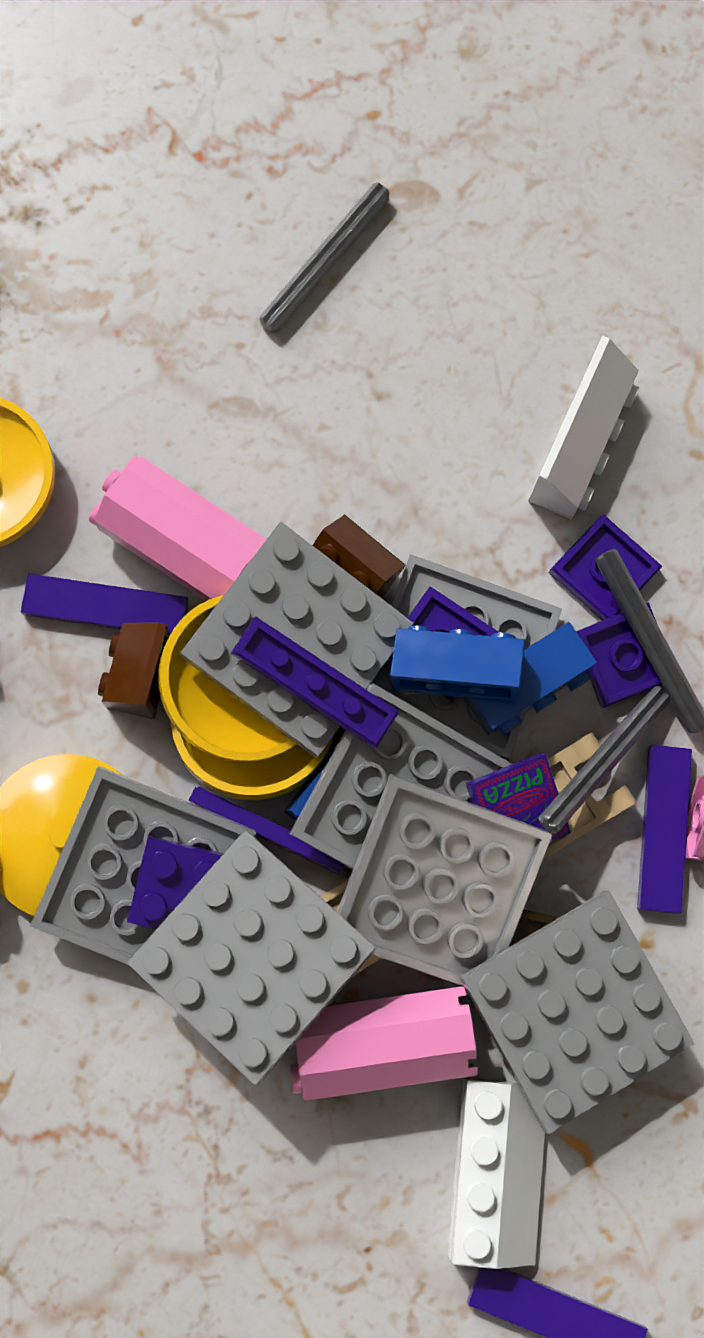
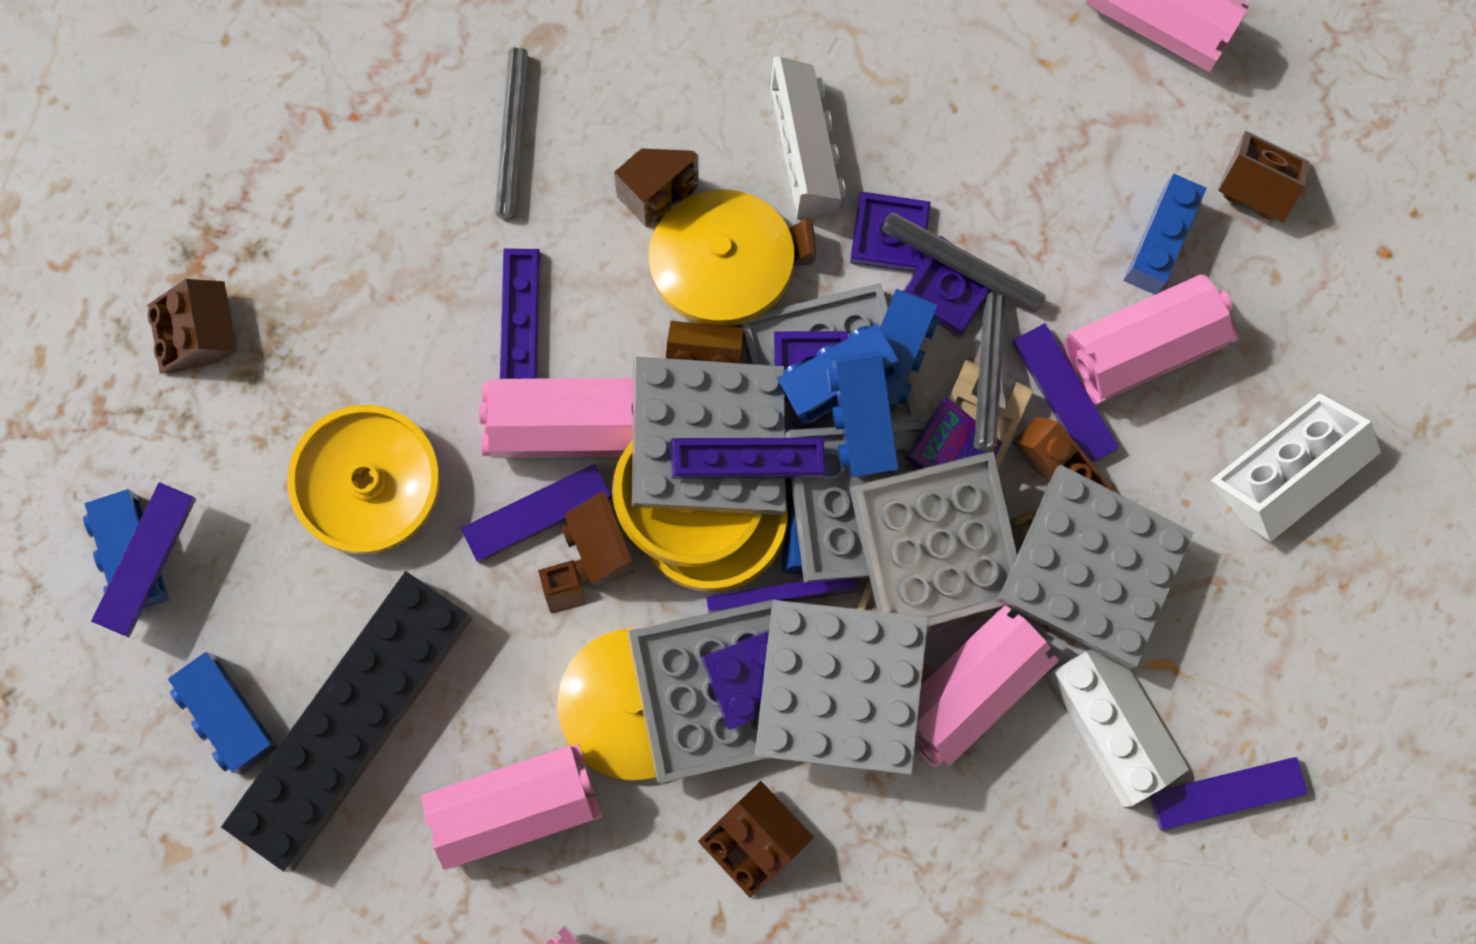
camera: 35 degrees left, 0 degrees up
(78, 687) = (562, 587): none -> reddish brown slope
(84, 1039) = (755, 839): none -> reddish brown slope
(217, 421) = (520, 314): none -> dark purple tile
(420, 380) = (655, 180): none -> reddish brown slope
(432, 489) = (721, 257): none -> yellow dish
(448, 714) = (862, 414): none -> blue brick
(513, 525) = (803, 242): none -> reddish brown slope
(614, 867) = (1049, 445): none -> dark orange slope

